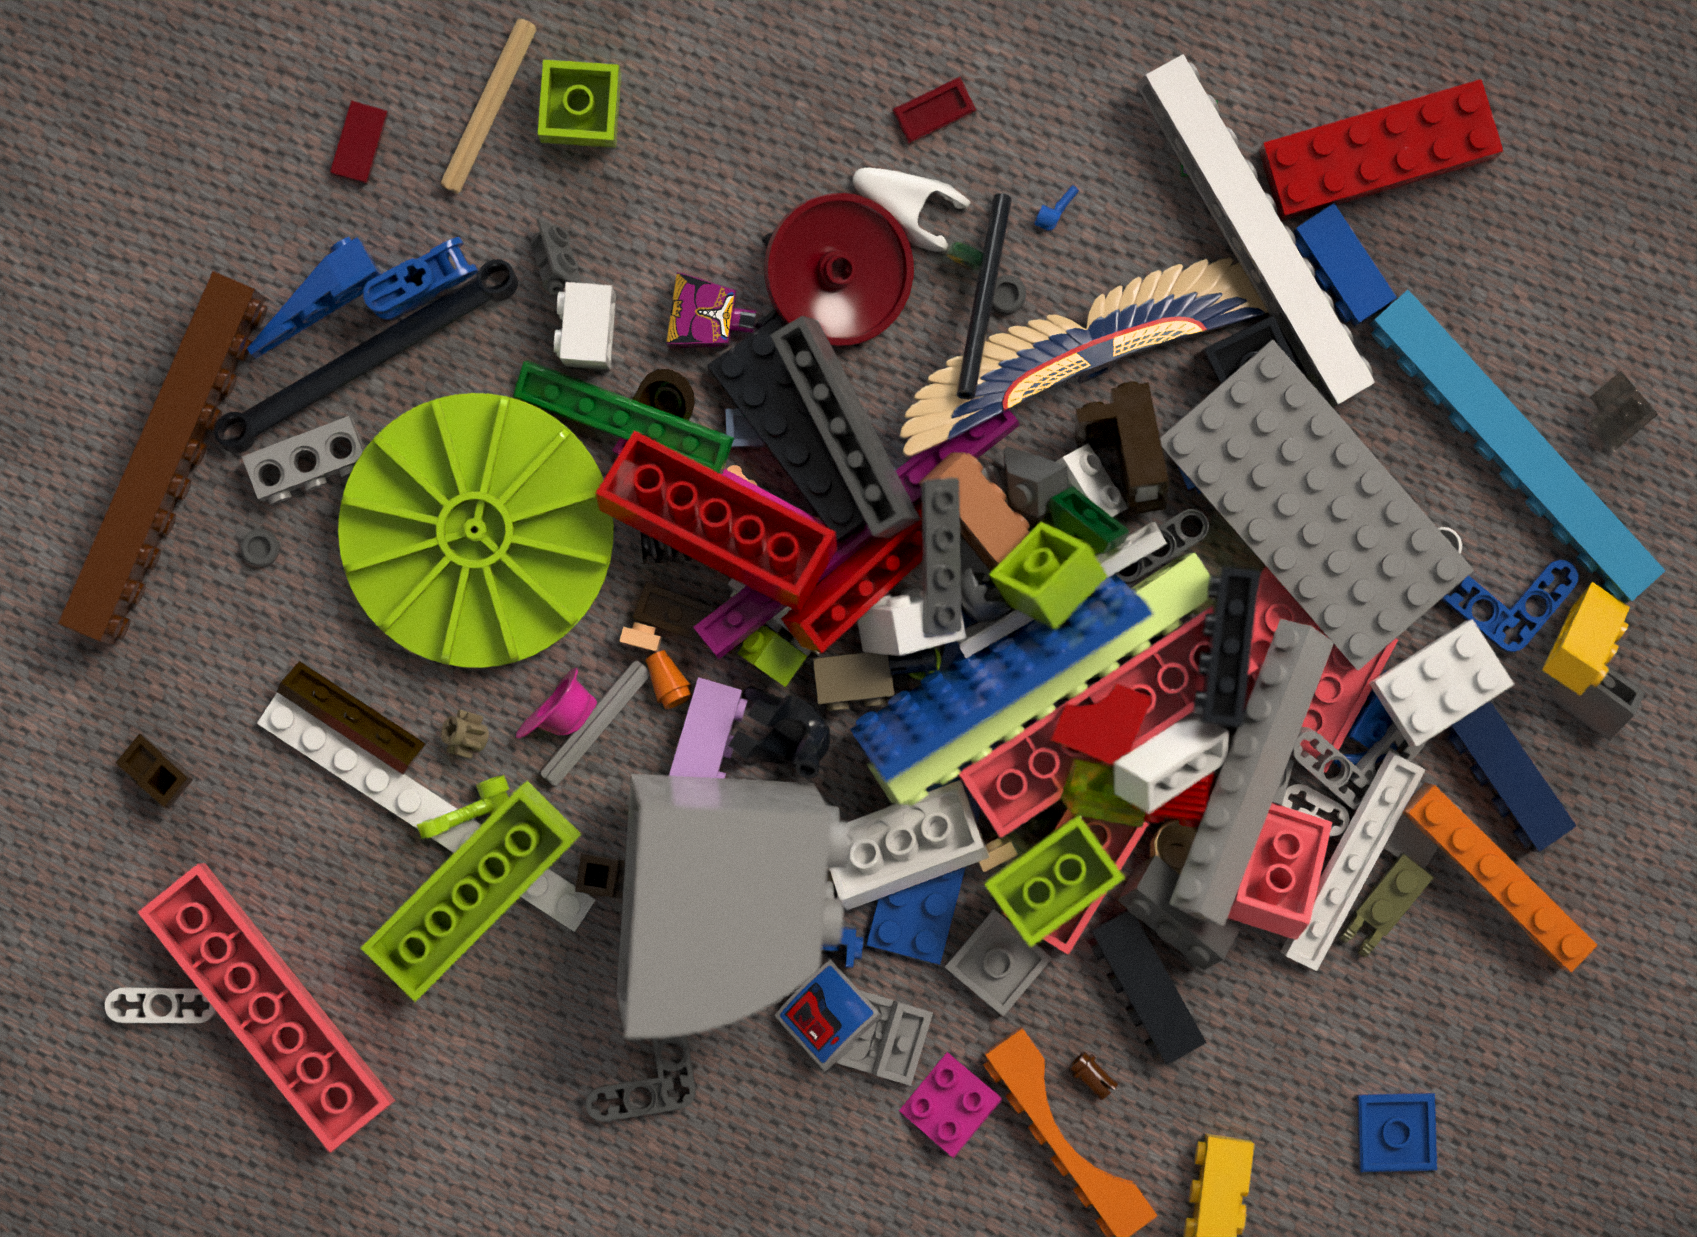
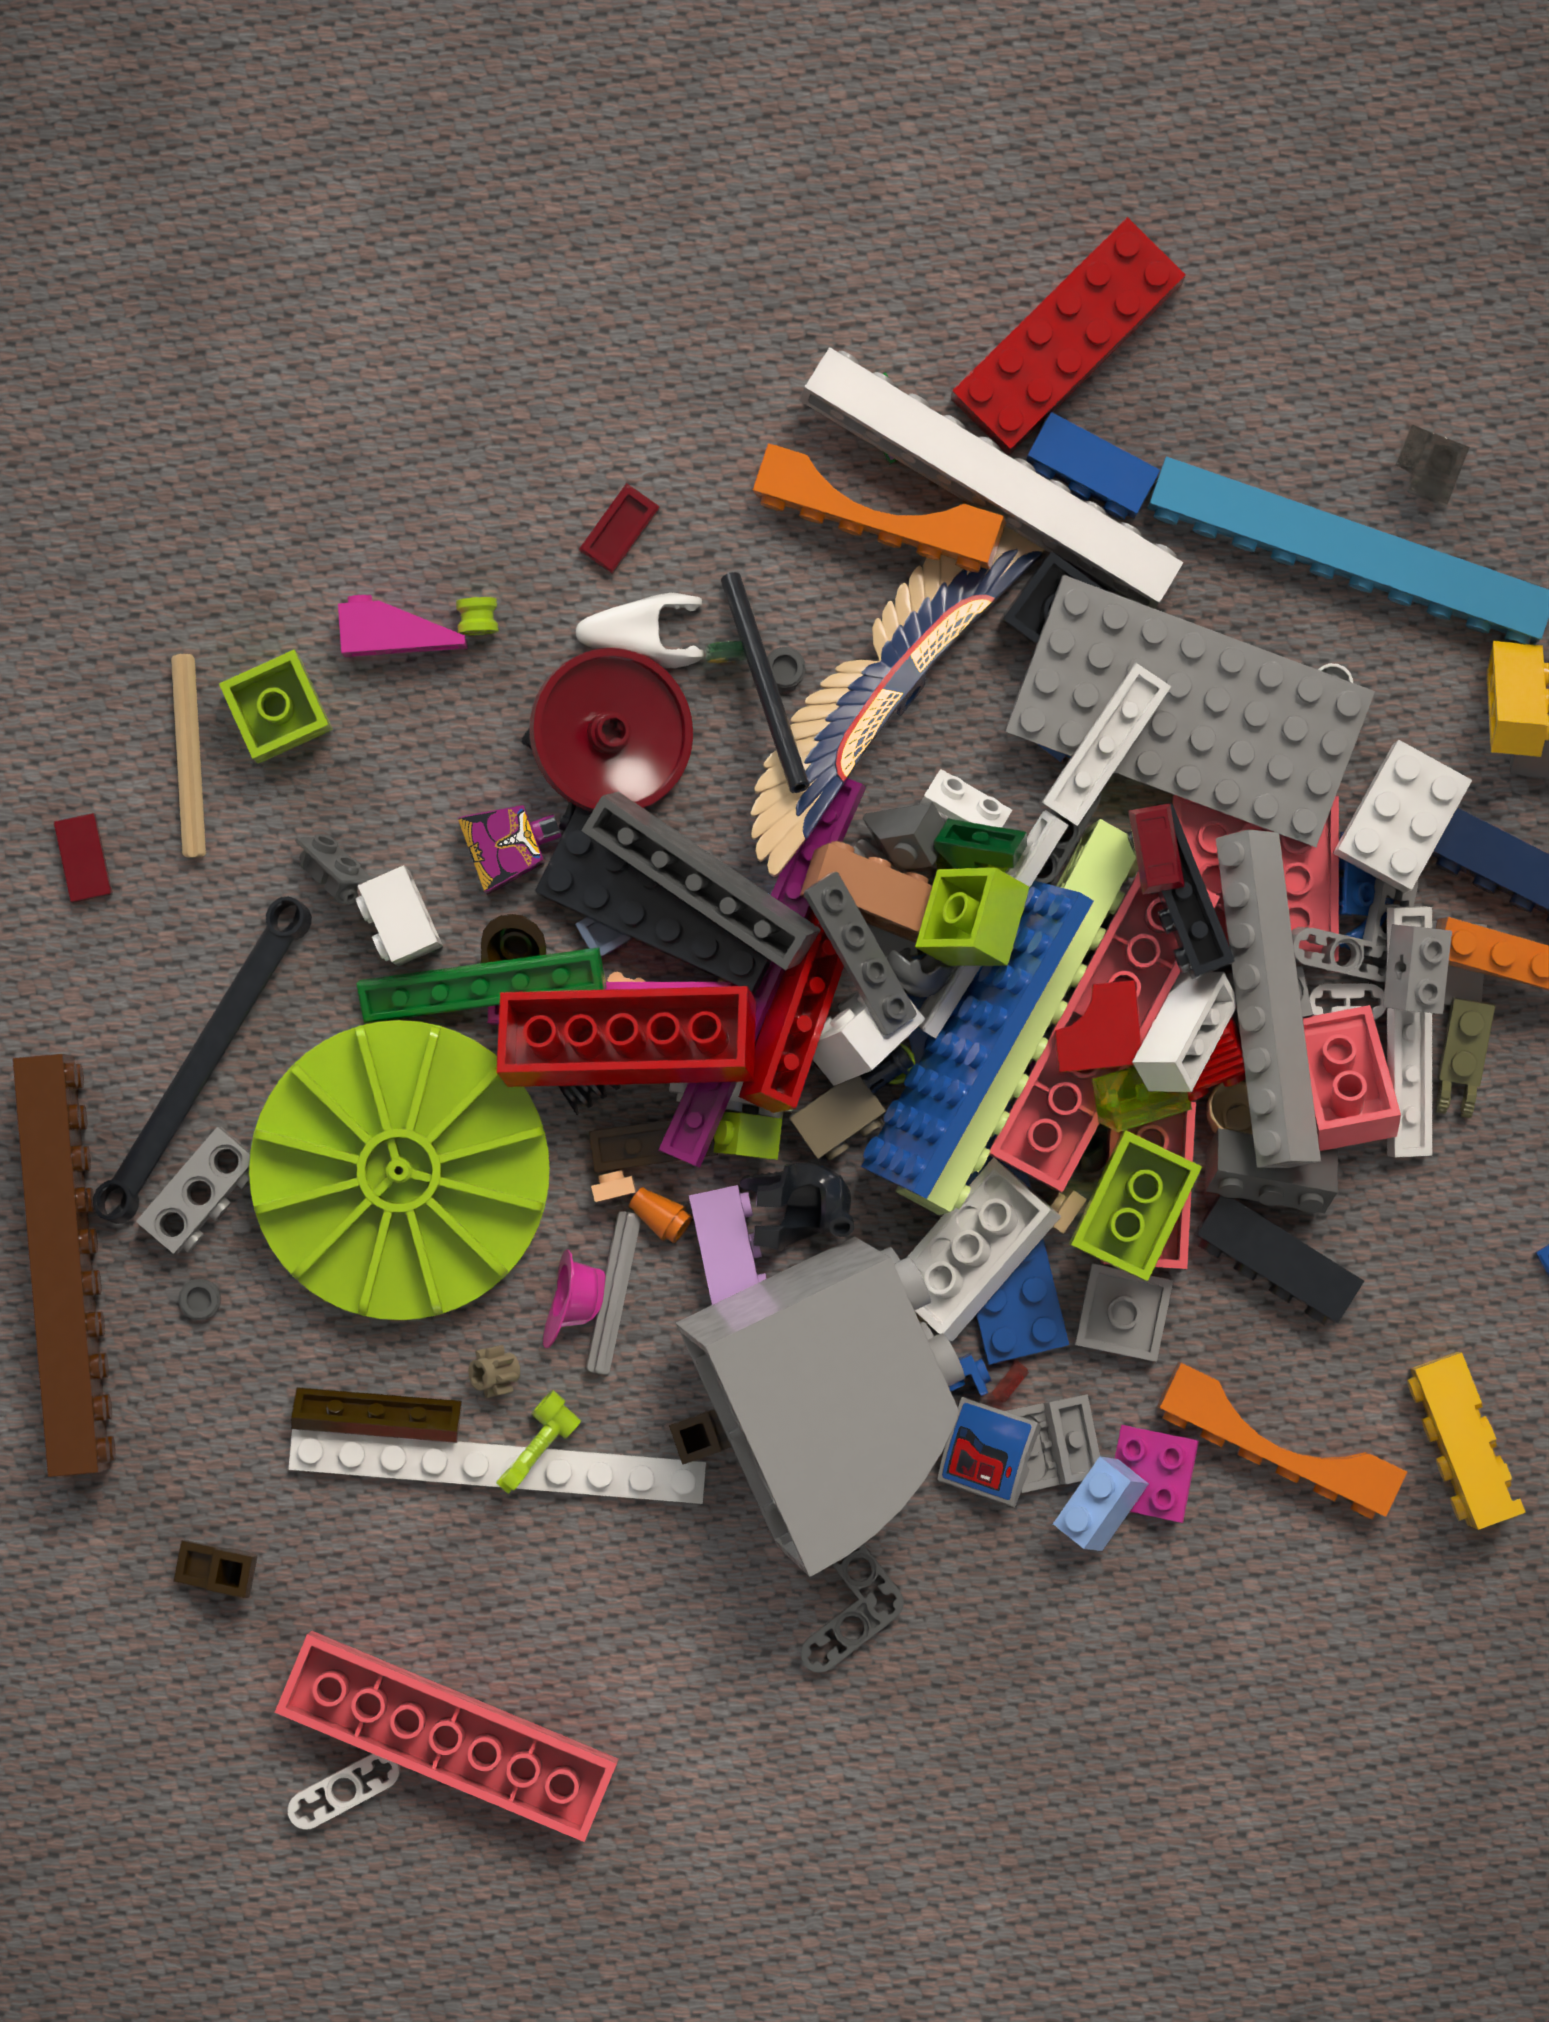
camera: 20 degrees left, 0 degrees up
(329, 287) = (131, 1010): blue wedge -> none
(396, 291) = (200, 983): blue piece -> none
(471, 891) = (583, 1518): lime brick -> none
(699, 87) = (382, 629): none -> dark pink slope
(781, 118) = (477, 616): none -> lime wheel
(875, 968) = (1009, 1381): none -> clear red tile
(895, 1106) = (1100, 1503): none -> light blue brick
(1049, 217) = (785, 572): blue hand -> none
(1092, 1075) = (1272, 1371): reddish brown pin -> none
(1133, 430) = (976, 733): dark brown brick -> none
(1205, 260) = (958, 533): none -> orange arch
(1227, 600) = (1156, 848): none -> dark red tile
(1233, 494) = (1106, 744): none -> white plate
(1386, 813) = (1417, 969): none -> light grey brick
(1503, 617) = (1425, 719): blue beam -> none

